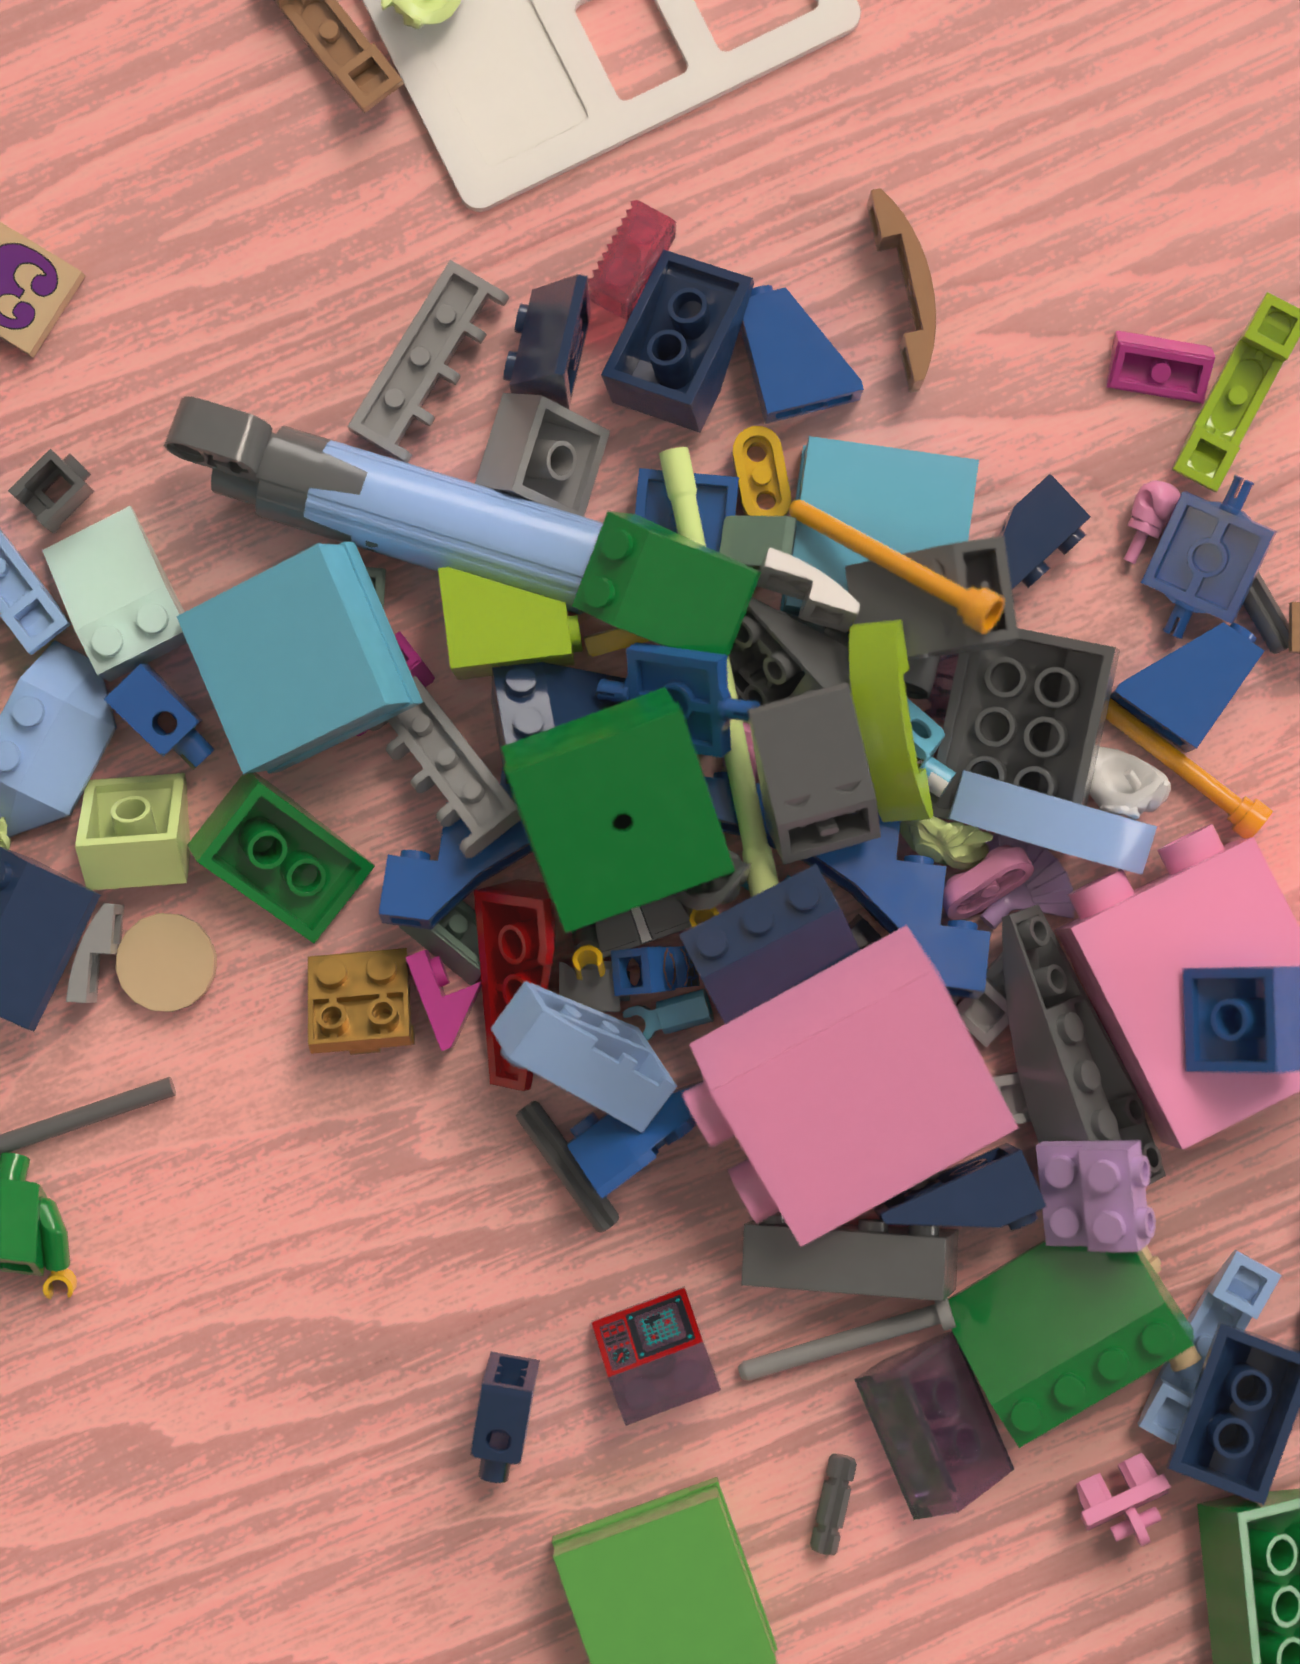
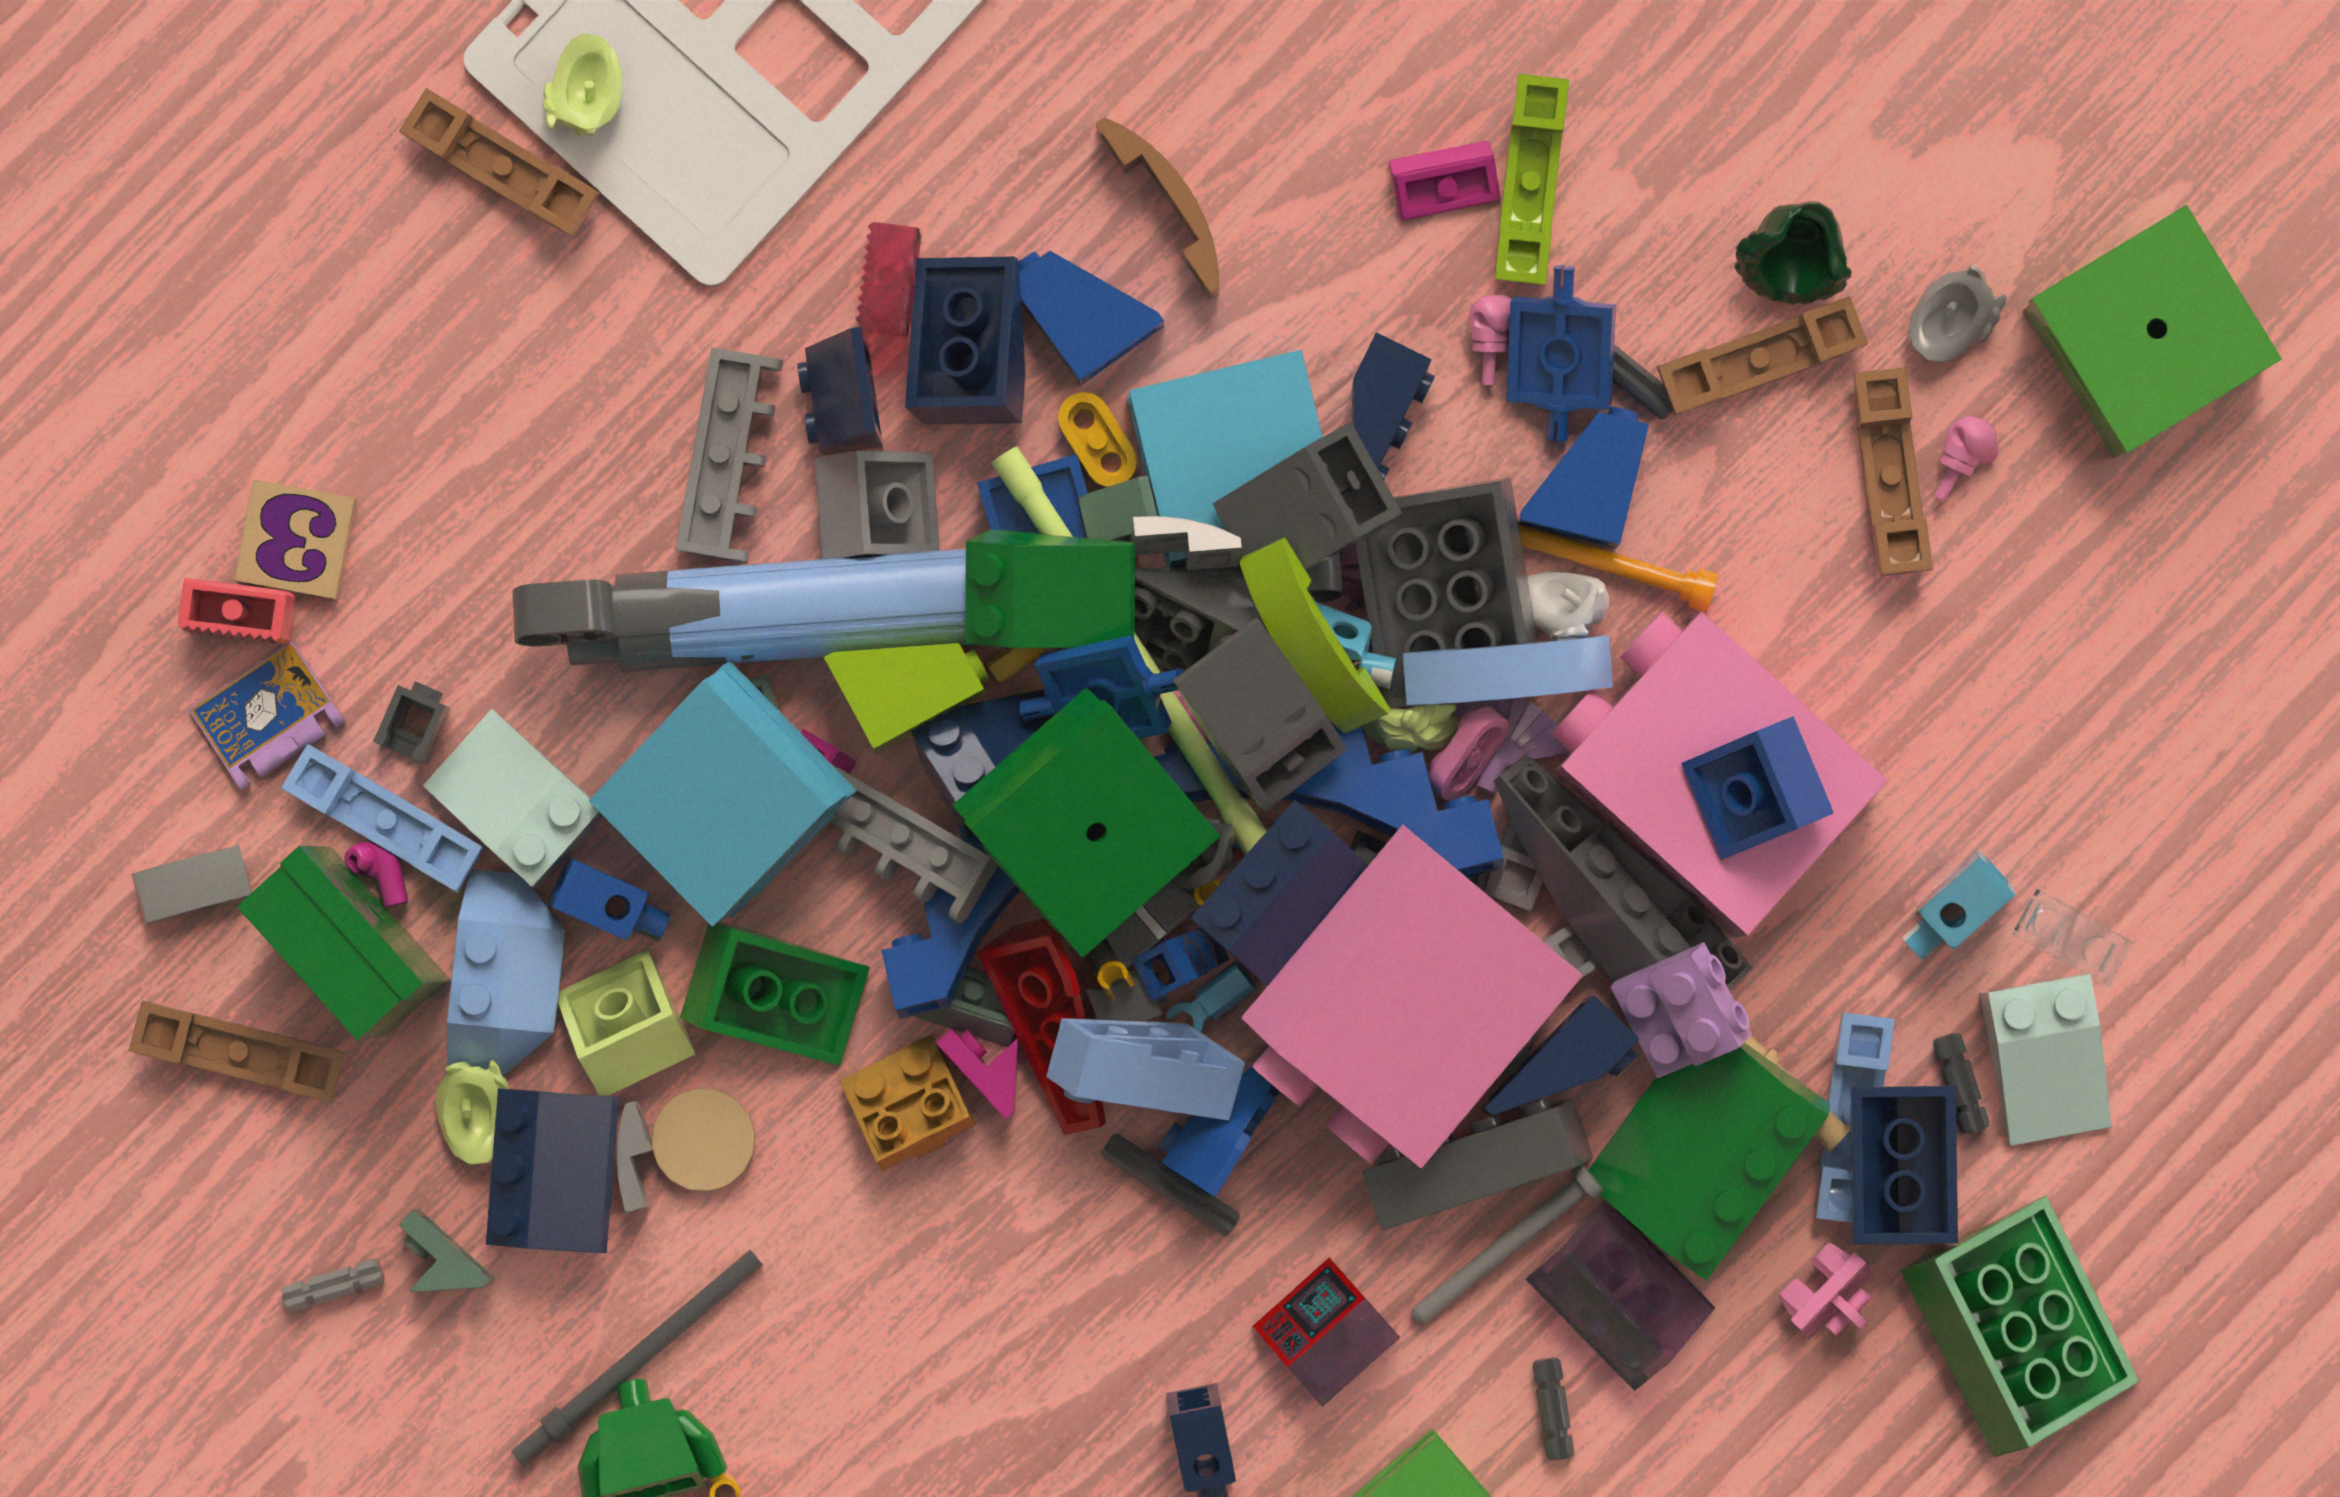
camera: 20 degrees left, 0 degrees up
(977, 607) = (1352, 500): light orange piece -> none

